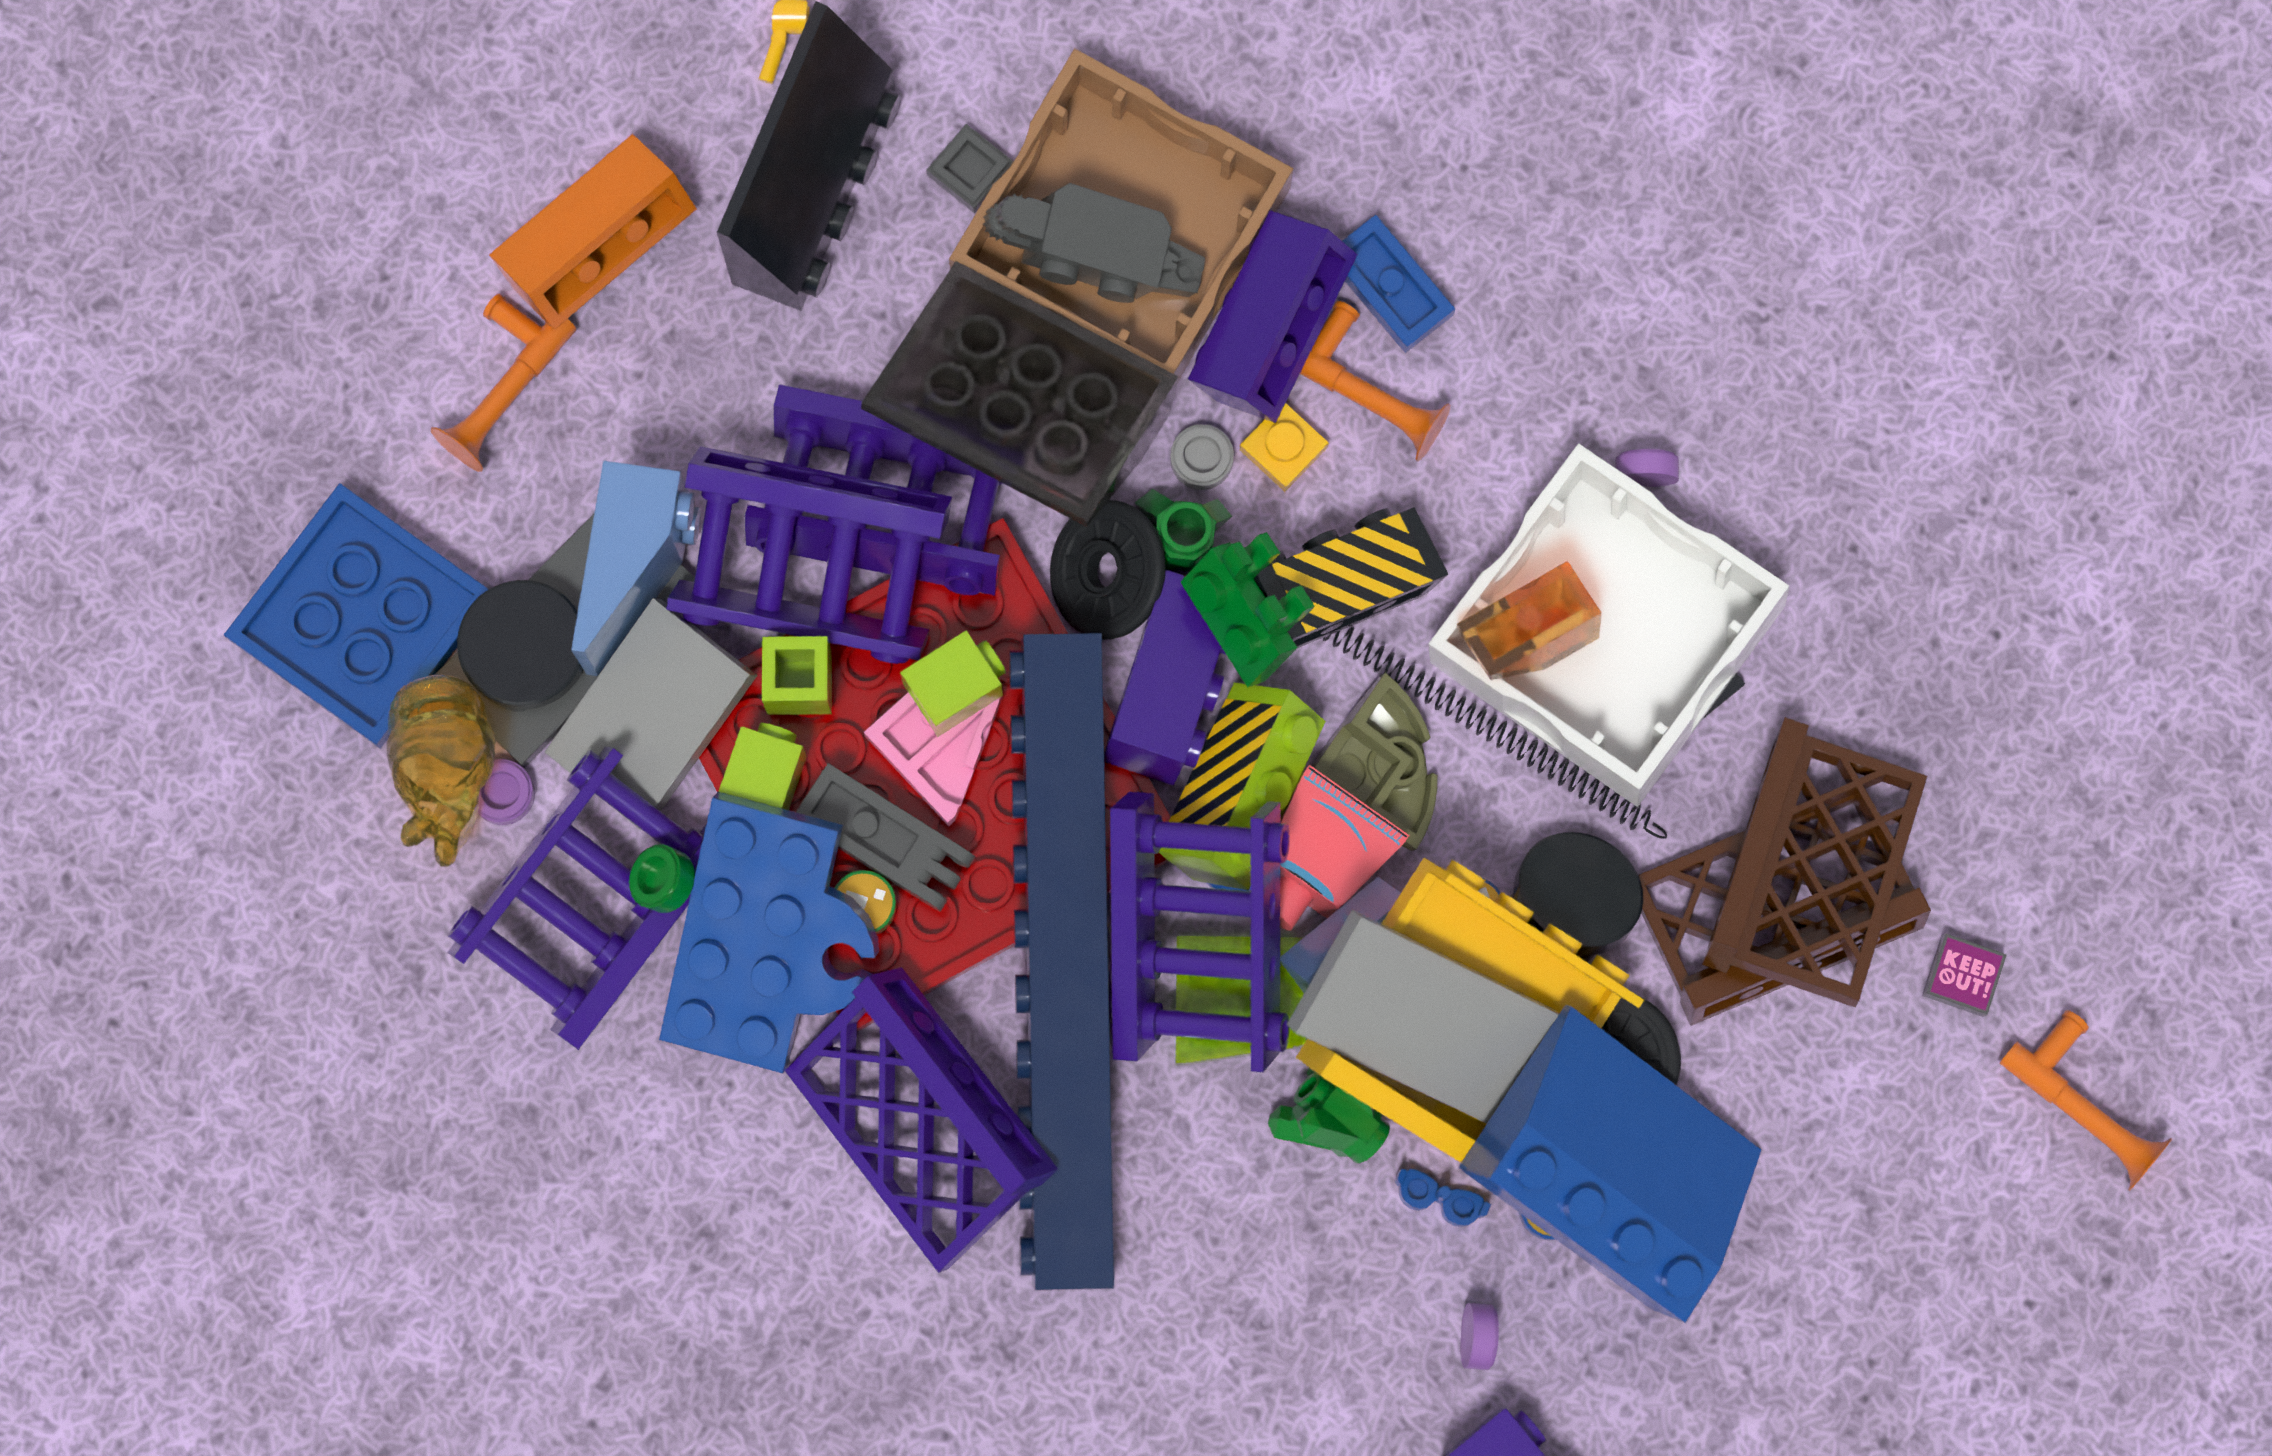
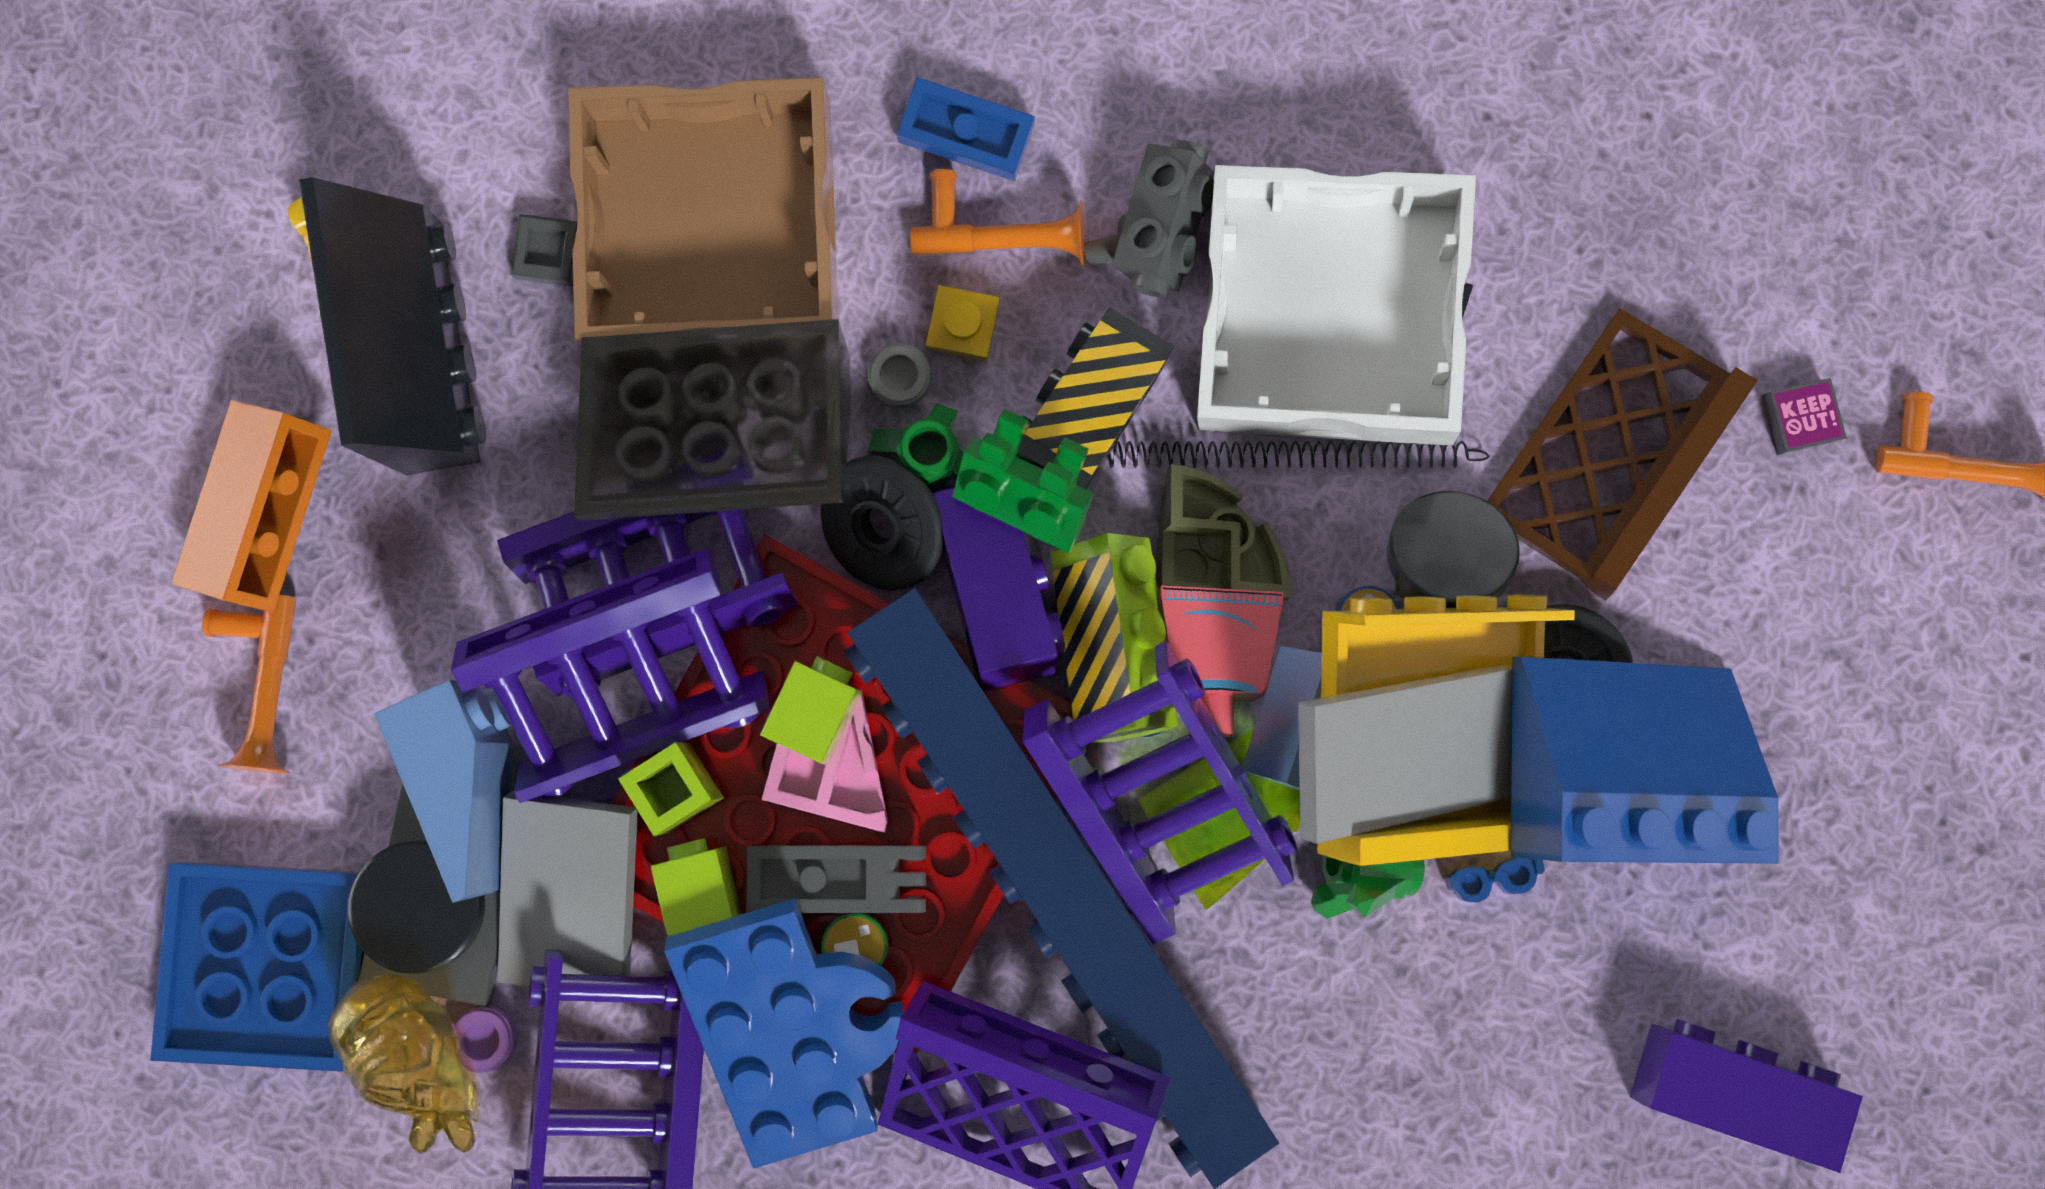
camera: 30 degrees left, 5 degrees up
(661, 878) = (666, 1041): green tile -> none
(1097, 242) = (692, 246): dark grey hinge -> none
(1272, 316) = (884, 216): dark purple brick -> none
(1479, 1336) = (1603, 978): medium lavender tile -> none
(1506, 462) = (1159, 231): none -> dark grey brick
(1533, 625) = (1277, 344): clear orange slope -> none
(1649, 467) = (1282, 149): medium lavender tile -> none
(1761, 849) = (1584, 423): reddish brown fence -> none

